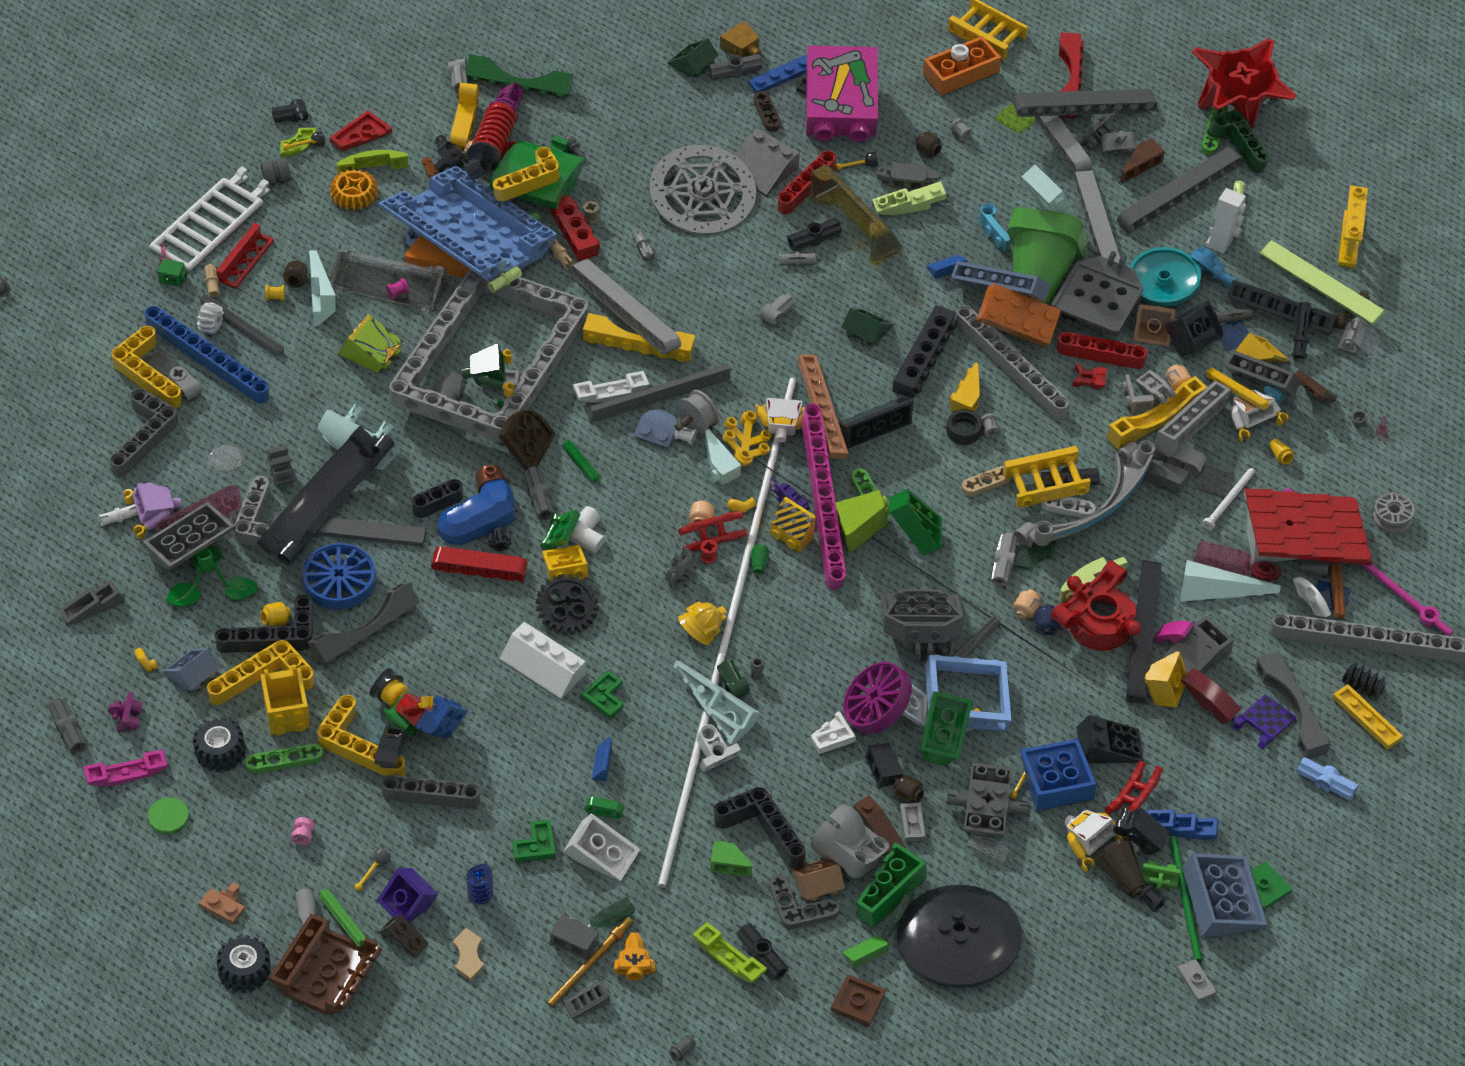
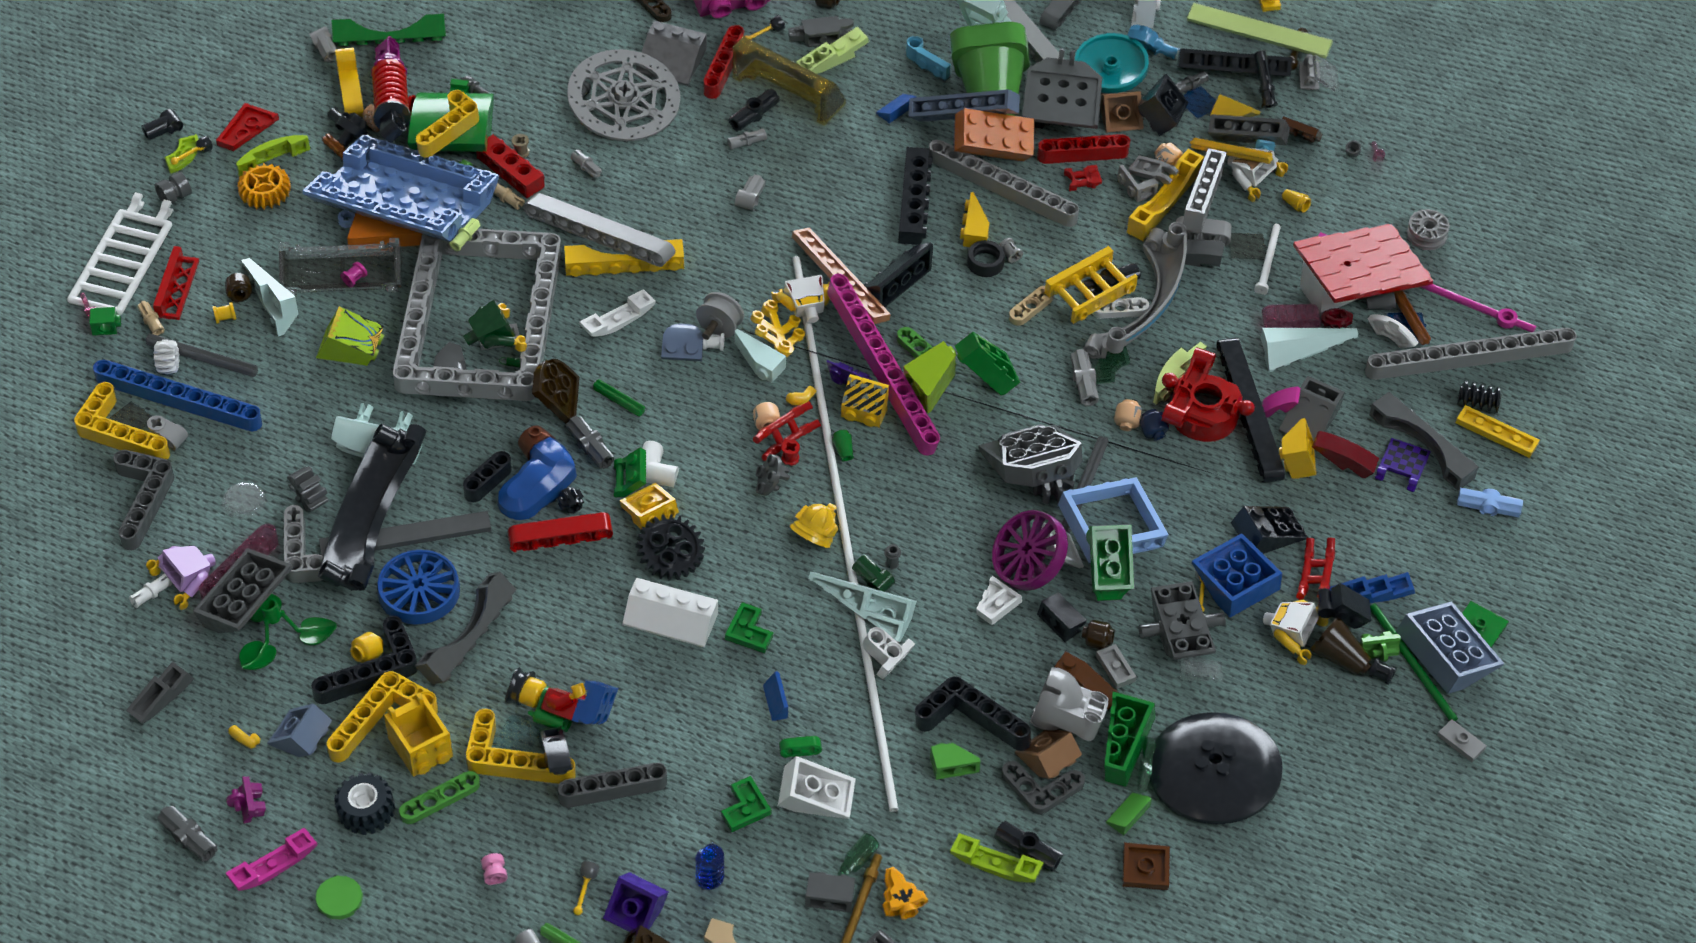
camera: 20 degrees left, 0 degrees up
(659, 393) = (669, 307): dark grey tile -> none
(865, 325) = (845, 185): dark green slope -> none

